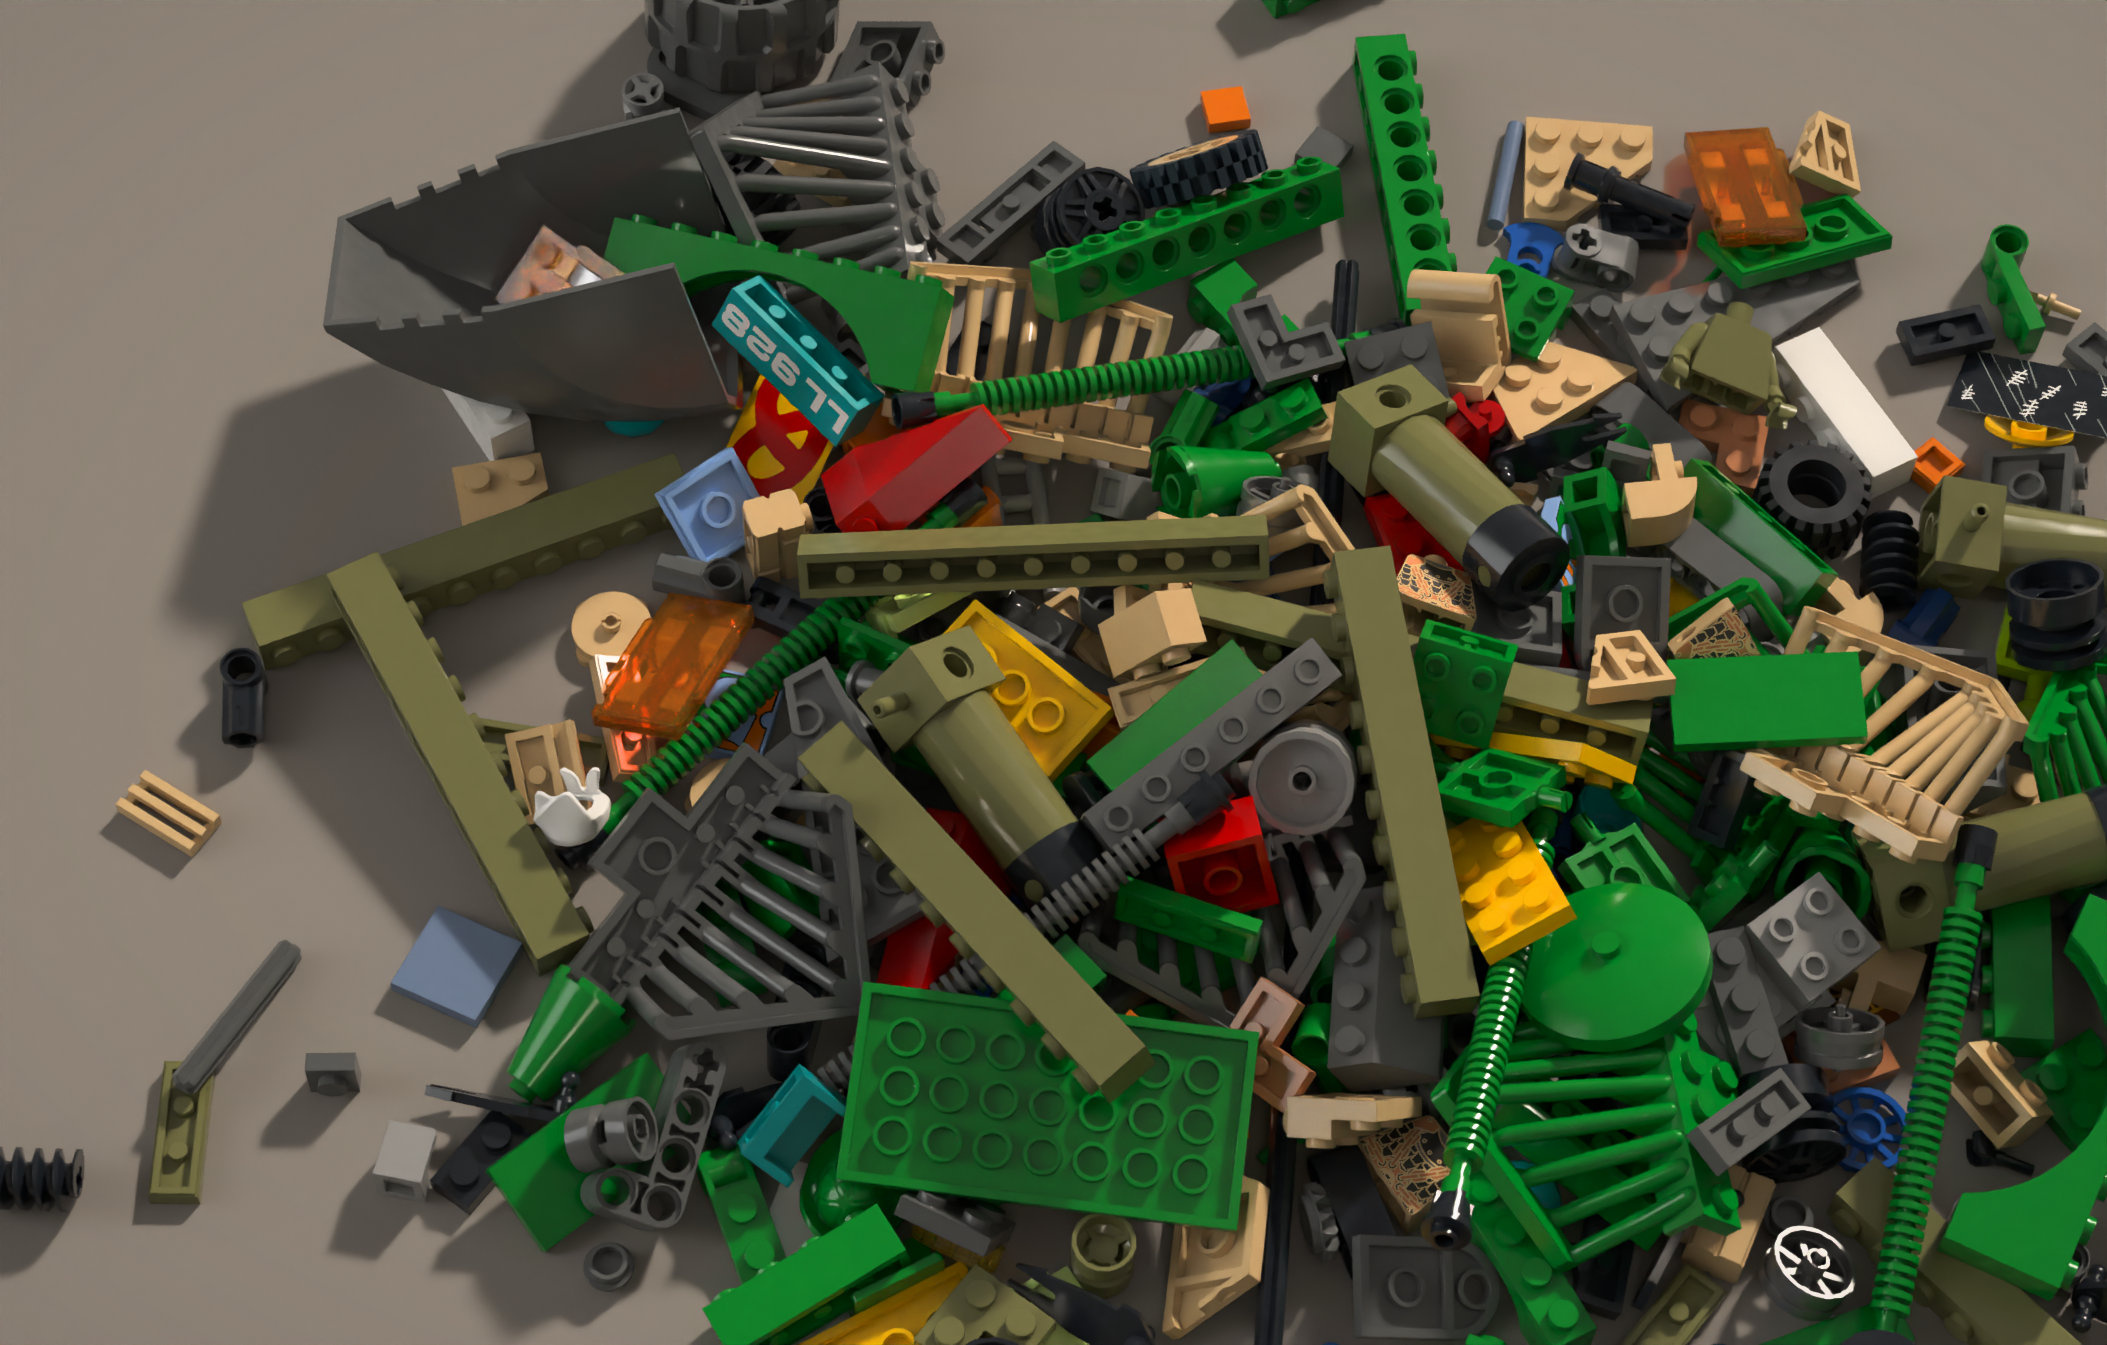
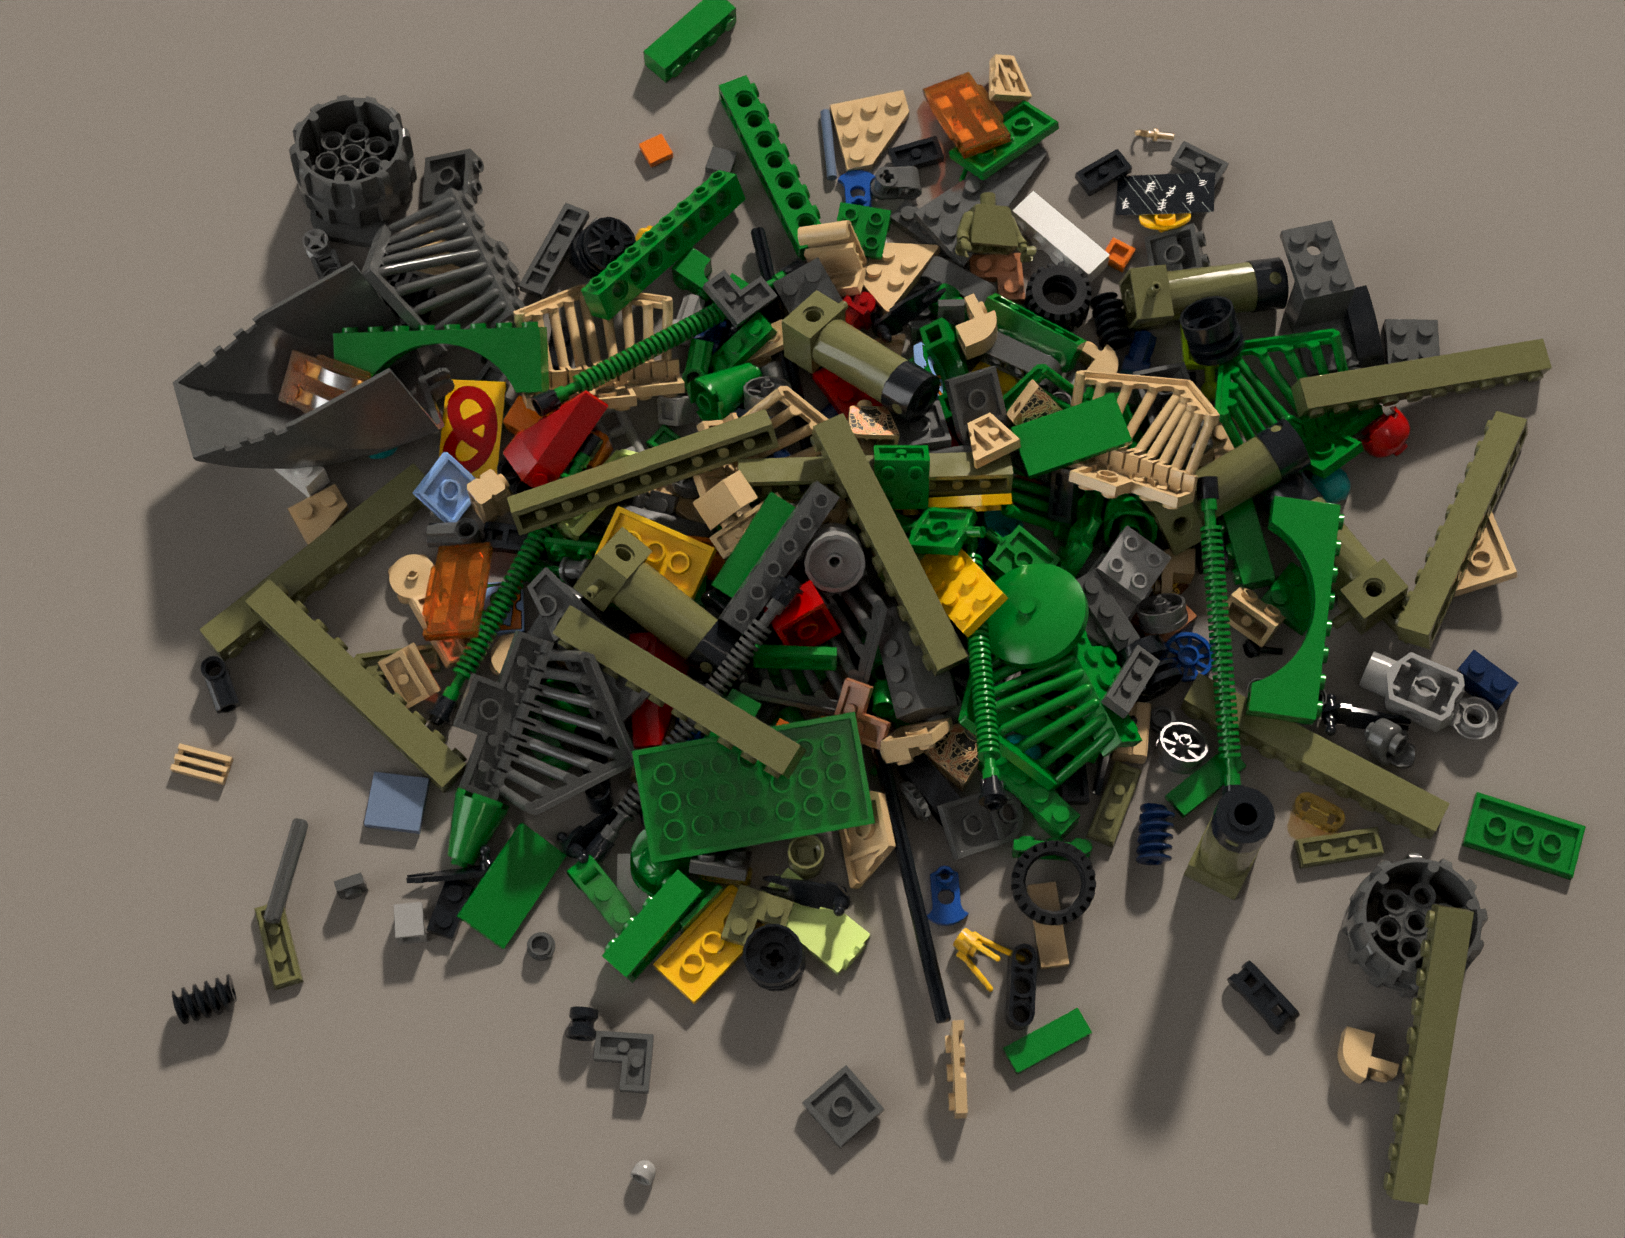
camera: 15 degrees left, 10 degrees up
(564, 818) = (429, 702): white piece -> none
(611, 1134) = (520, 877): dark grey wheel -> none
(683, 1139) = (546, 865): dark grey beam -> none
(791, 1124) = (615, 838): teal panel -> none
(797, 360) = (467, 389): teal brick -> none
(1199, 169) = (656, 198): black wheel -> none
(1610, 185) = (891, 136): black pin -> none
(2008, 289) = (1129, 132): green plate -> none

